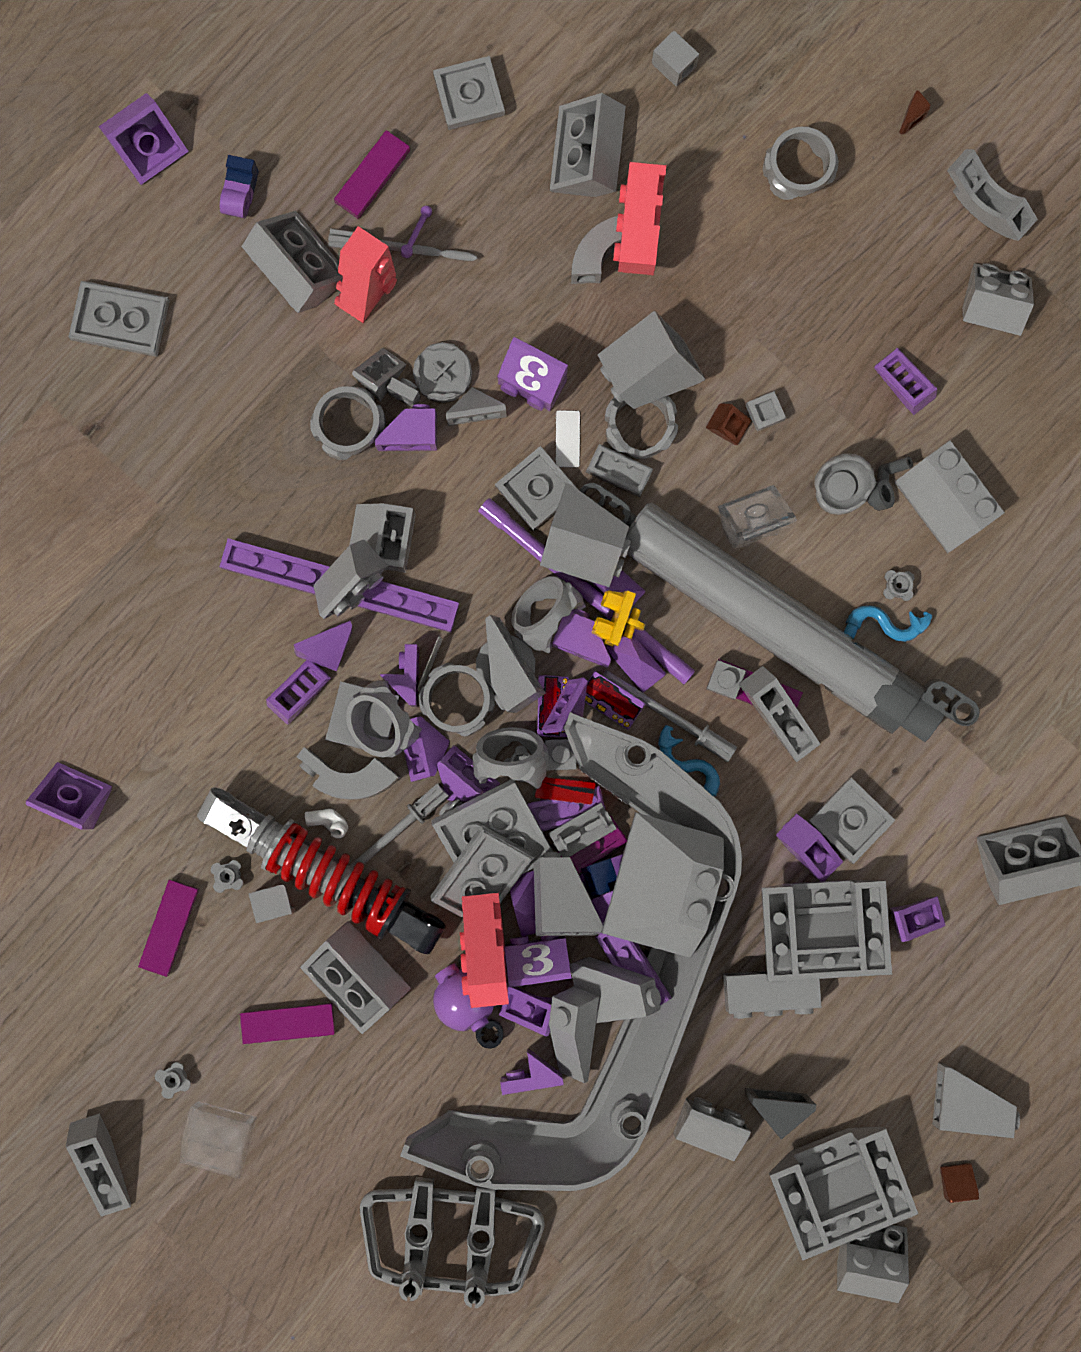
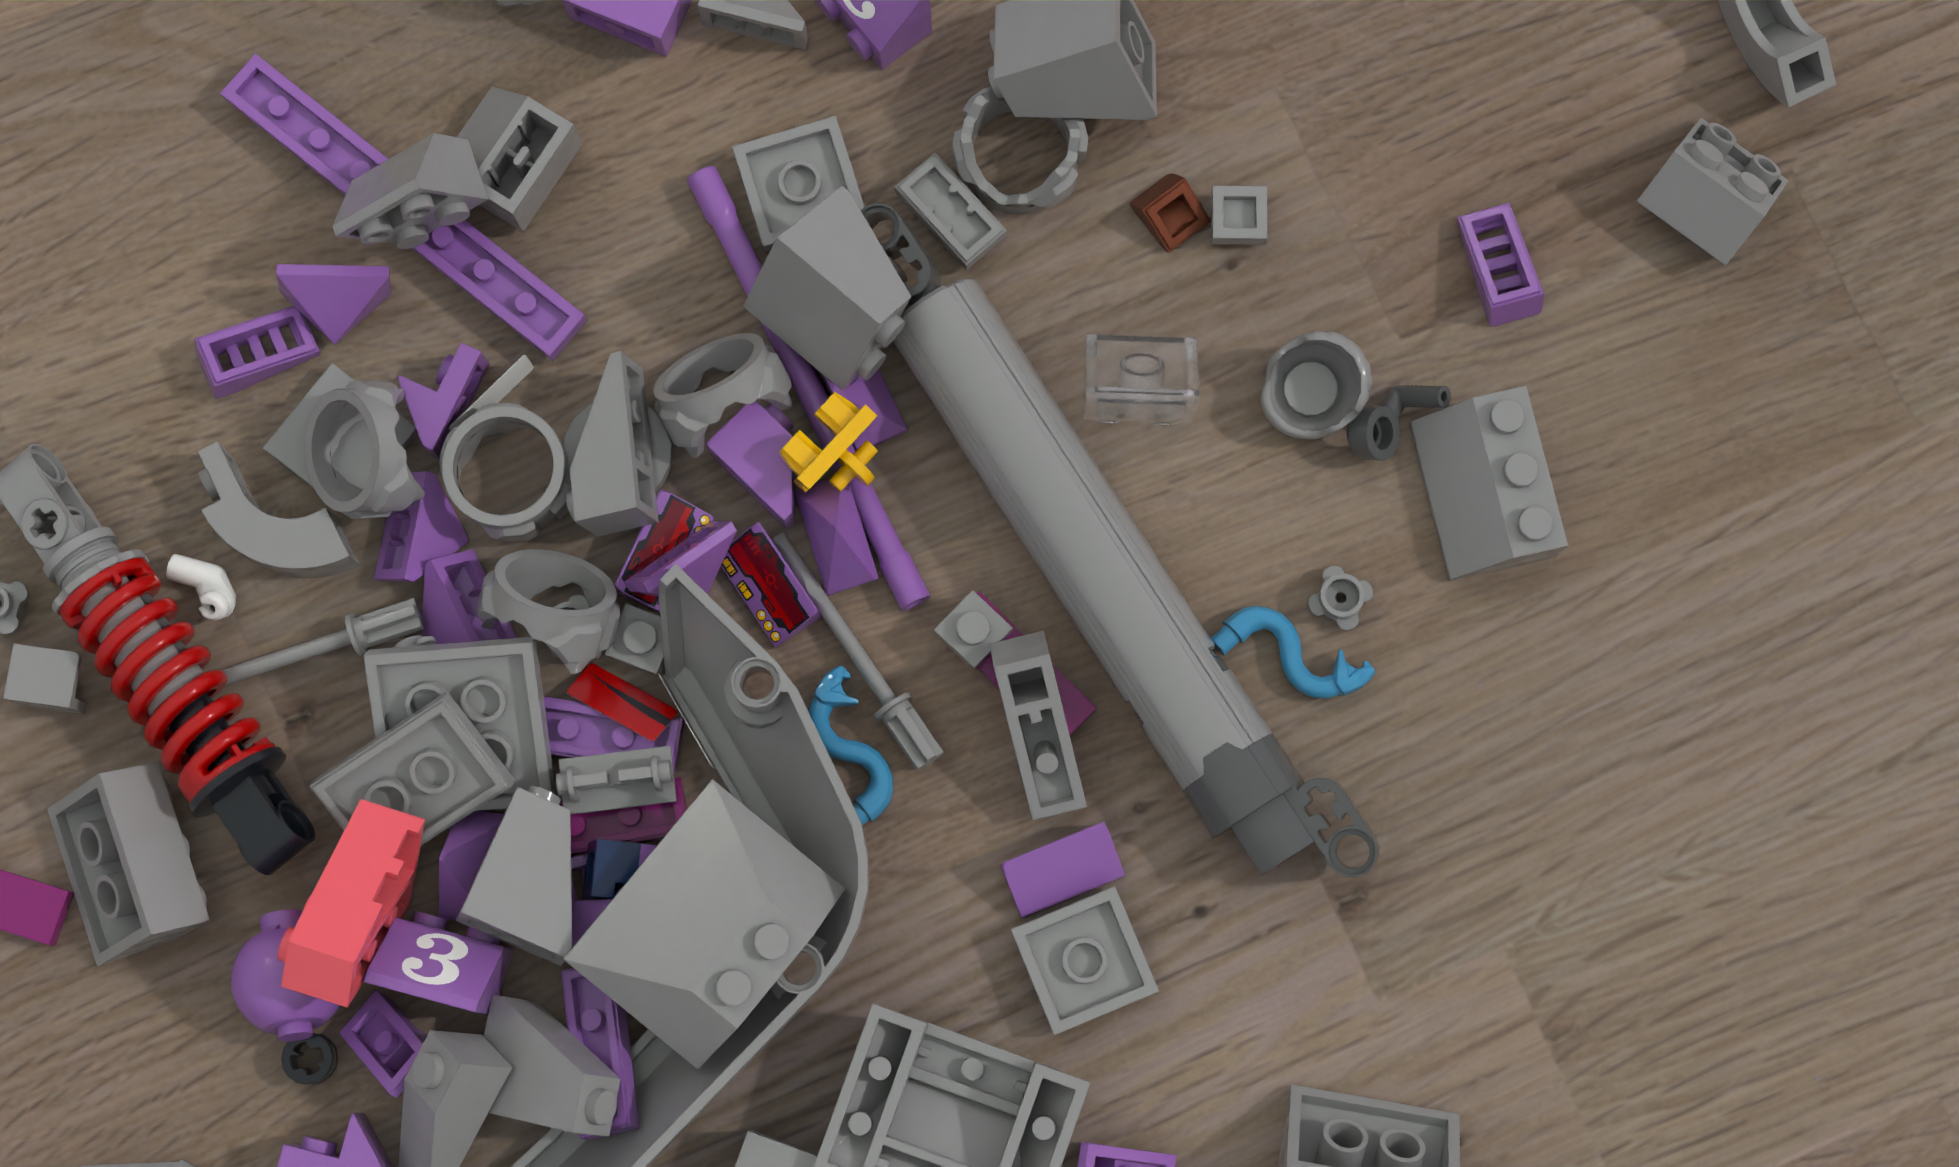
camera: 25 degrees right, 5 degrees down
(567, 438) = (890, 126): white sticker -> none
(809, 847) = (991, 976): medium lavender slope -> none
(820, 780) = (1062, 869): none -> medium lavender slope

